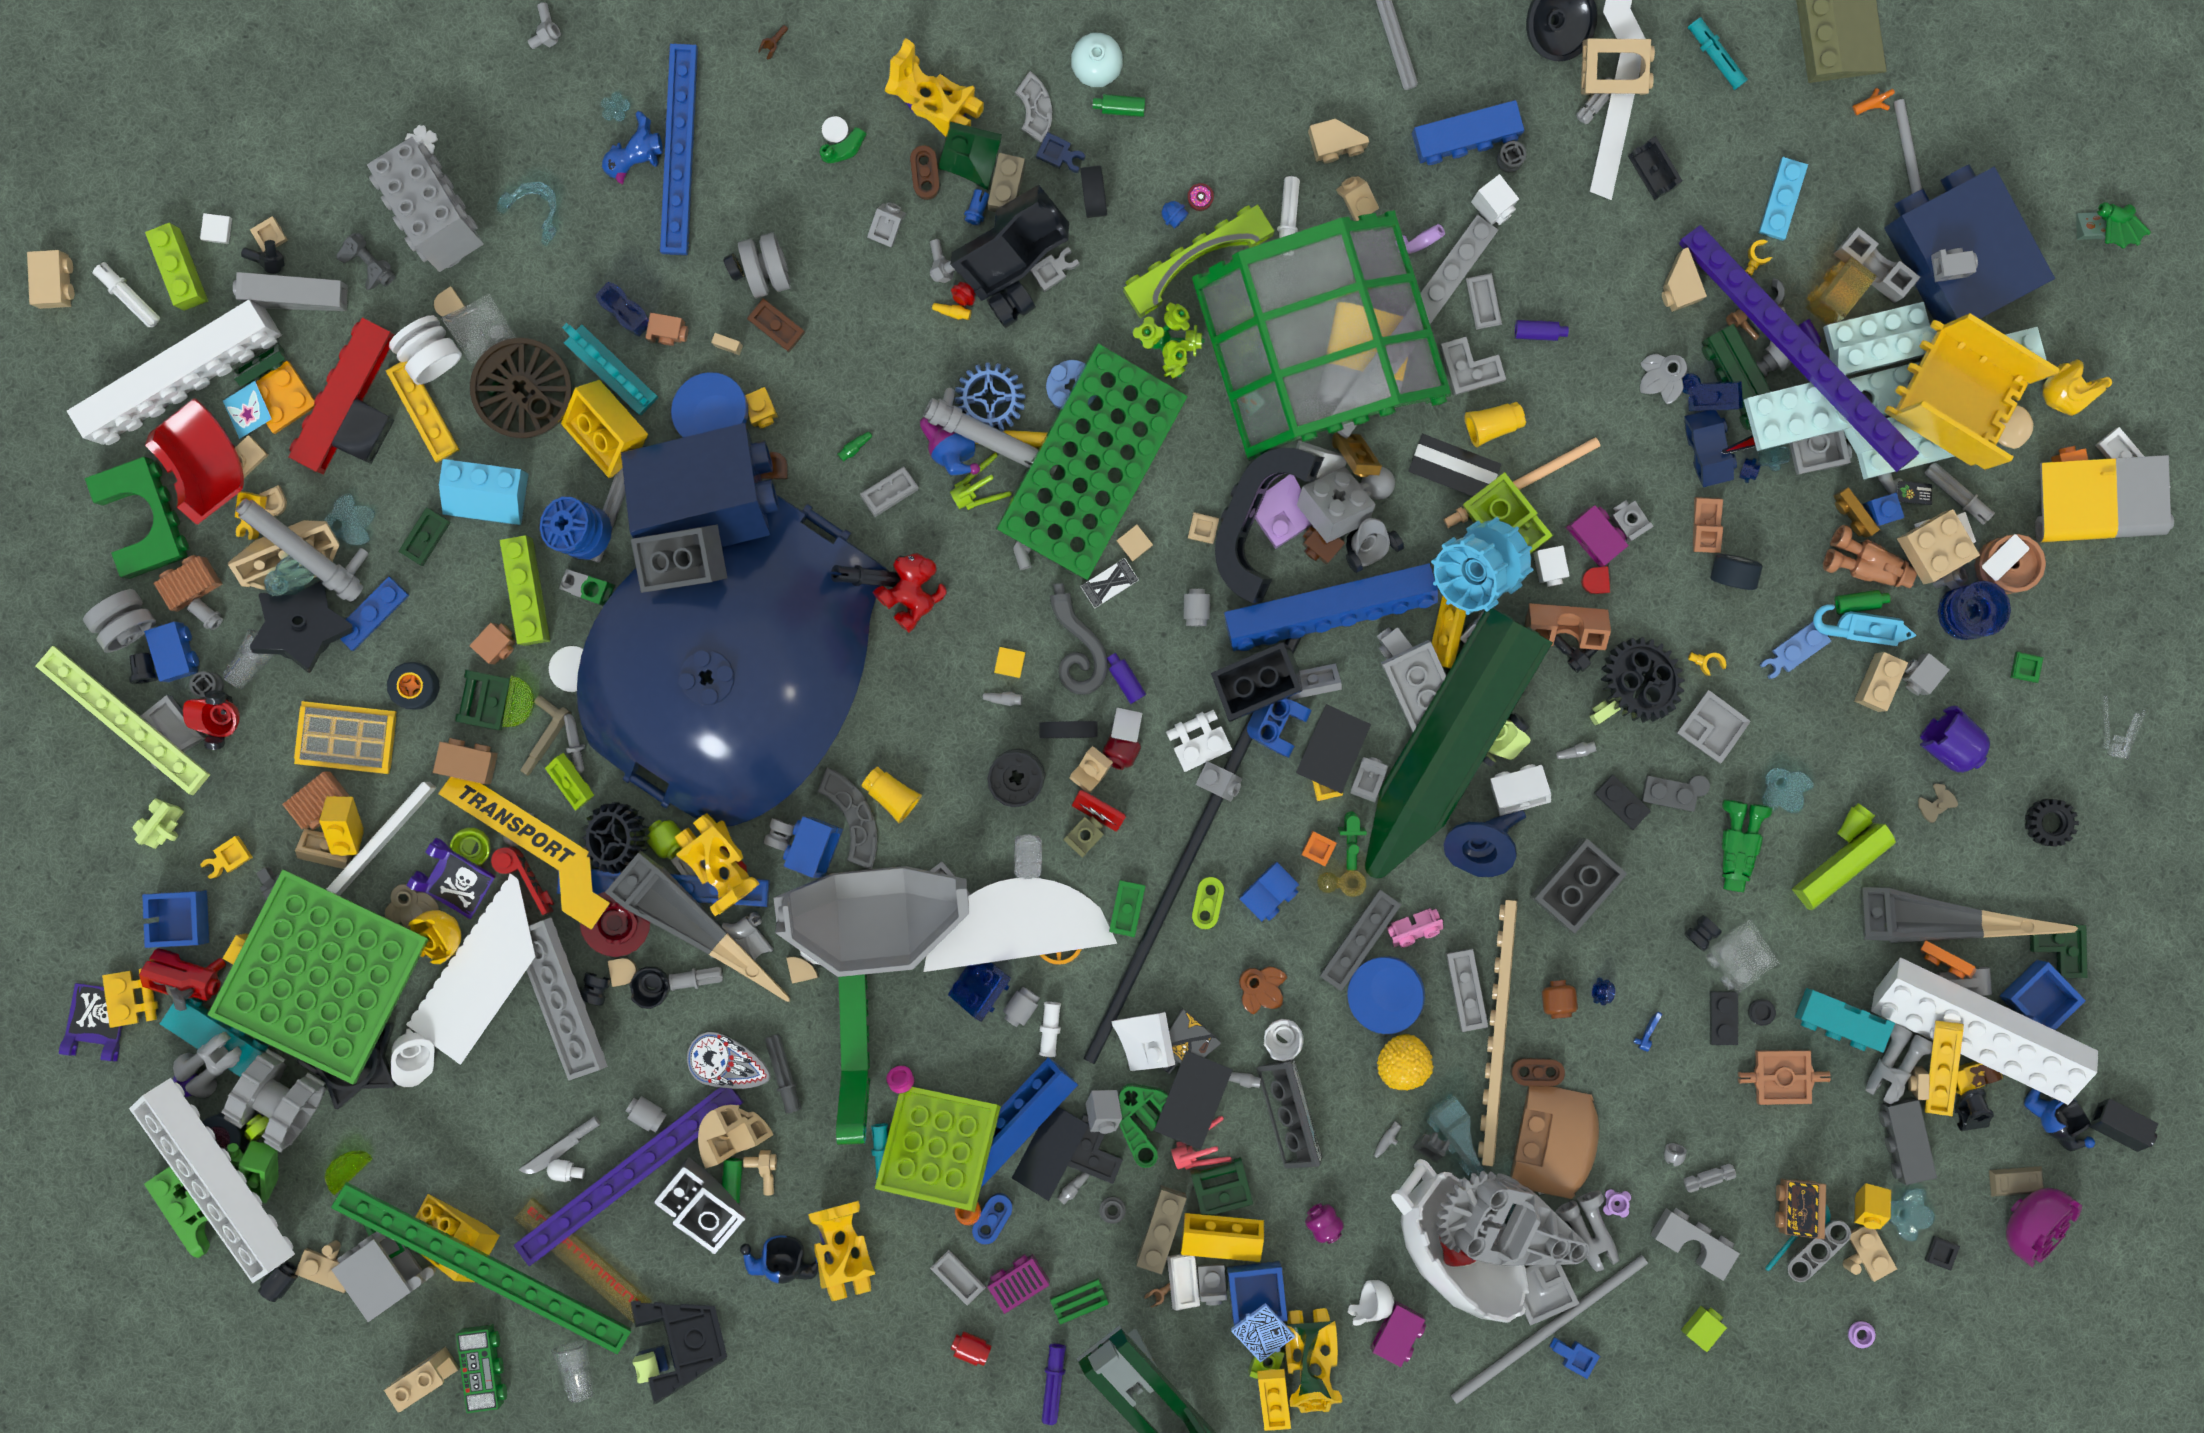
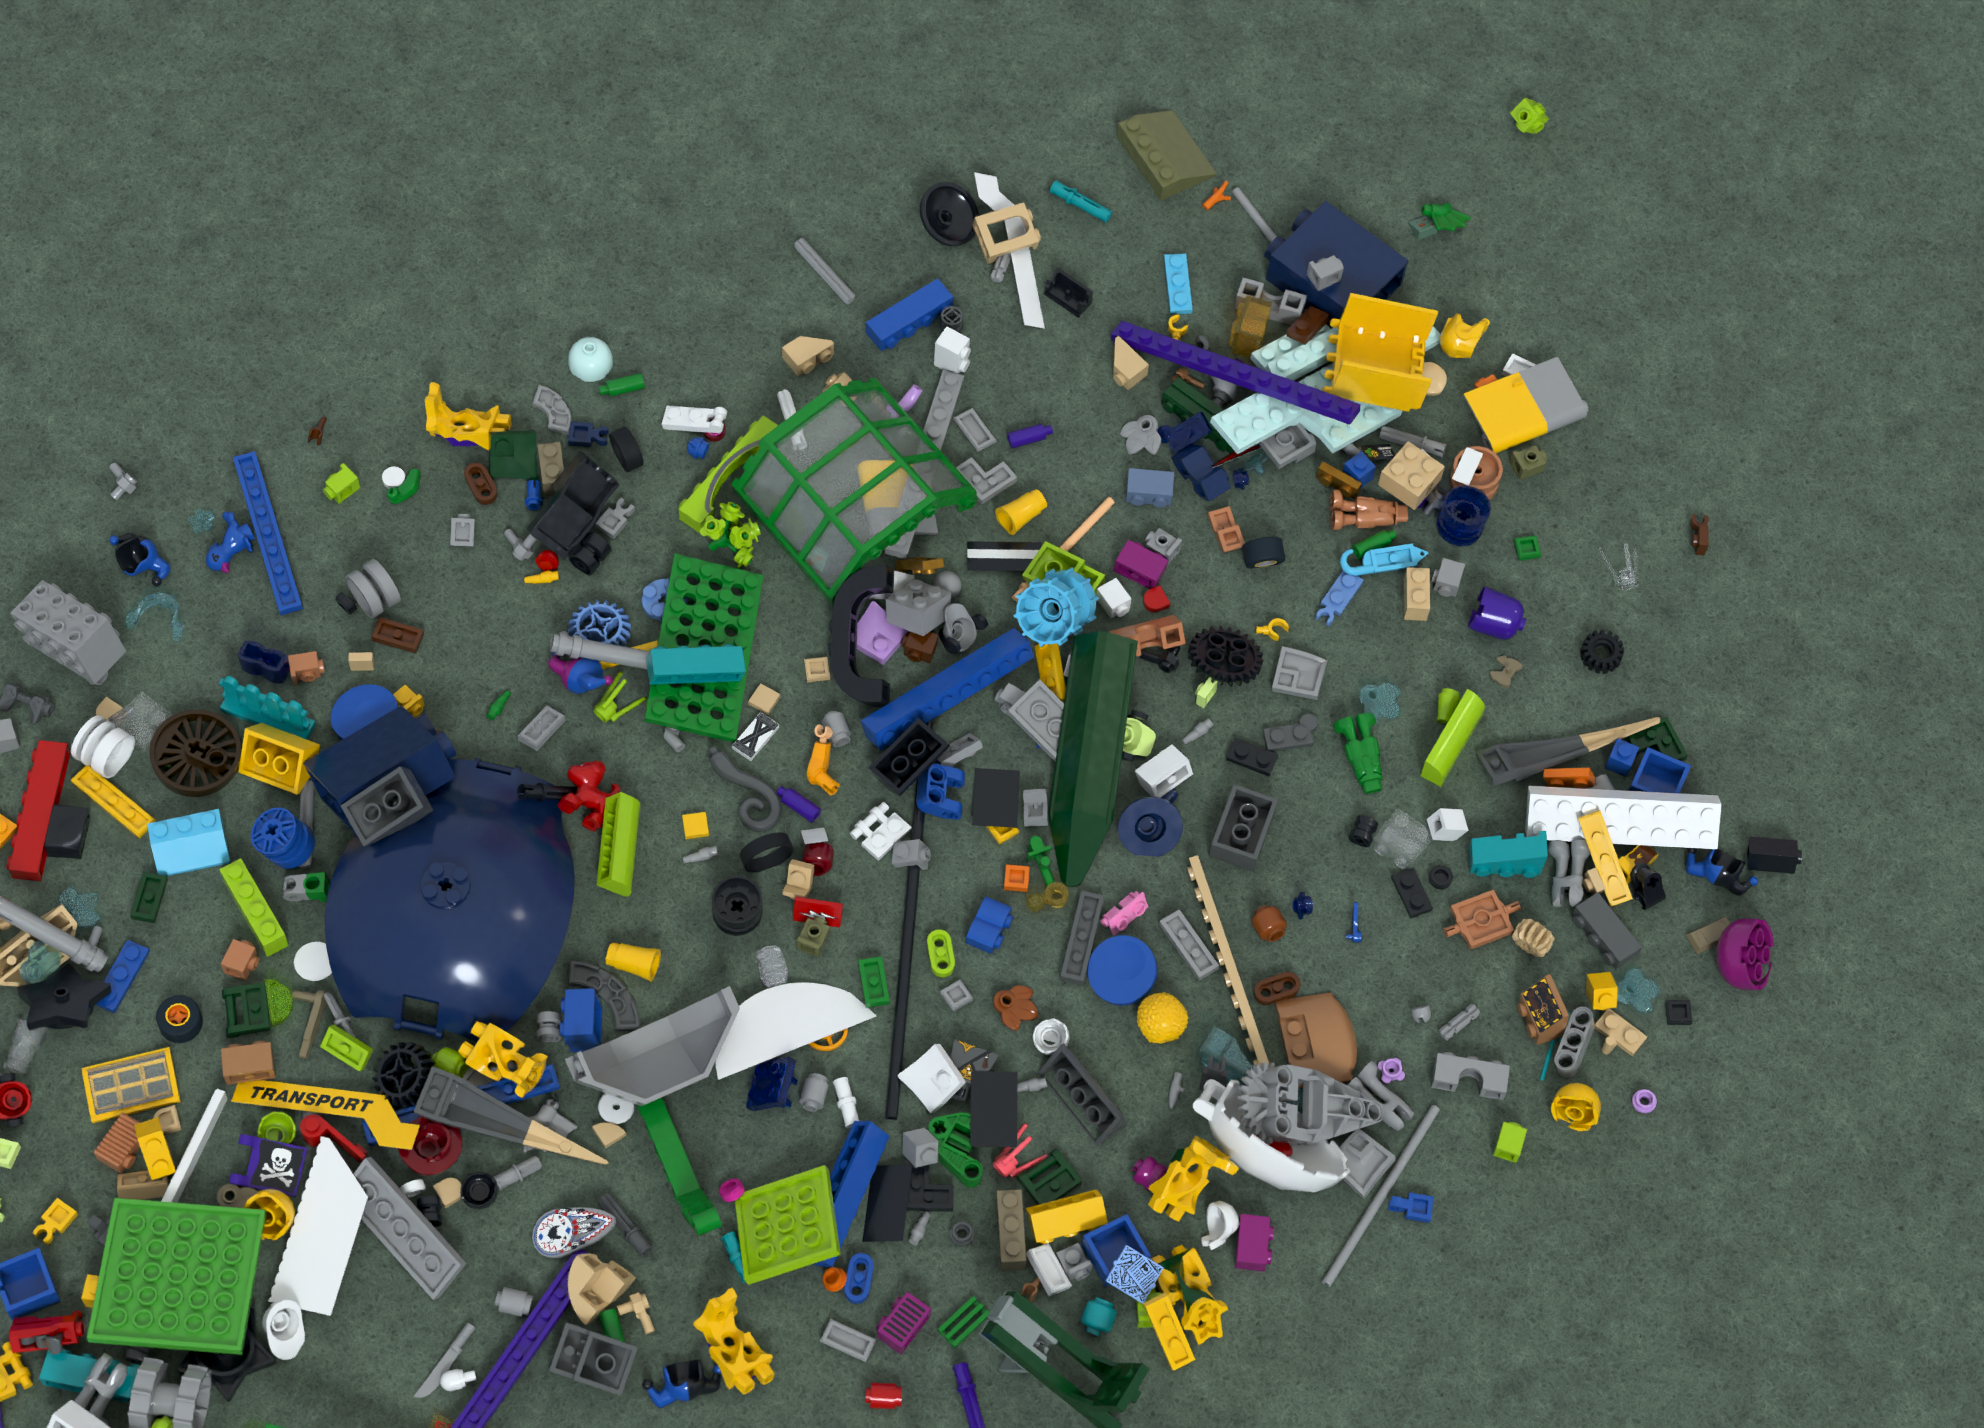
camera: 30 degrees left, 25 degrees down
(369, 790) = (168, 1119): none -> tan tile
(535, 130) = (139, 555): none -> piece
(586, 957) = (413, 1188): none -> white tile
(774, 120) = (341, 484): none -> lime brick
(919, 660) = (618, 844): none -> lime brick
(1071, 489) = (695, 664): none -> teal brick
(1163, 642) = (820, 761): none -> light orange arm
(1182, 177) = (694, 419): none -> white plate
(1206, 953) = (956, 995): none -> light grey tile
(1213, 1350) = (1098, 1316): none -> teal head
(1358, 1250) = (1182, 1187): none -> yellow hips
(1645, 445) = (1149, 487): none -> sand blue brick
(1794, 961) = (1447, 824): none -> white brick
(1795, 1318) = (1579, 1104): none -> yellow cylinder
(1827, 1122) = (1533, 937): none -> tan gear
(1905, 312) = (1308, 325): none -> reddish brown plate
(2015, 954) = (1622, 757): none -> blue brick
(2067, 566) = (1524, 466): none -> olive brick

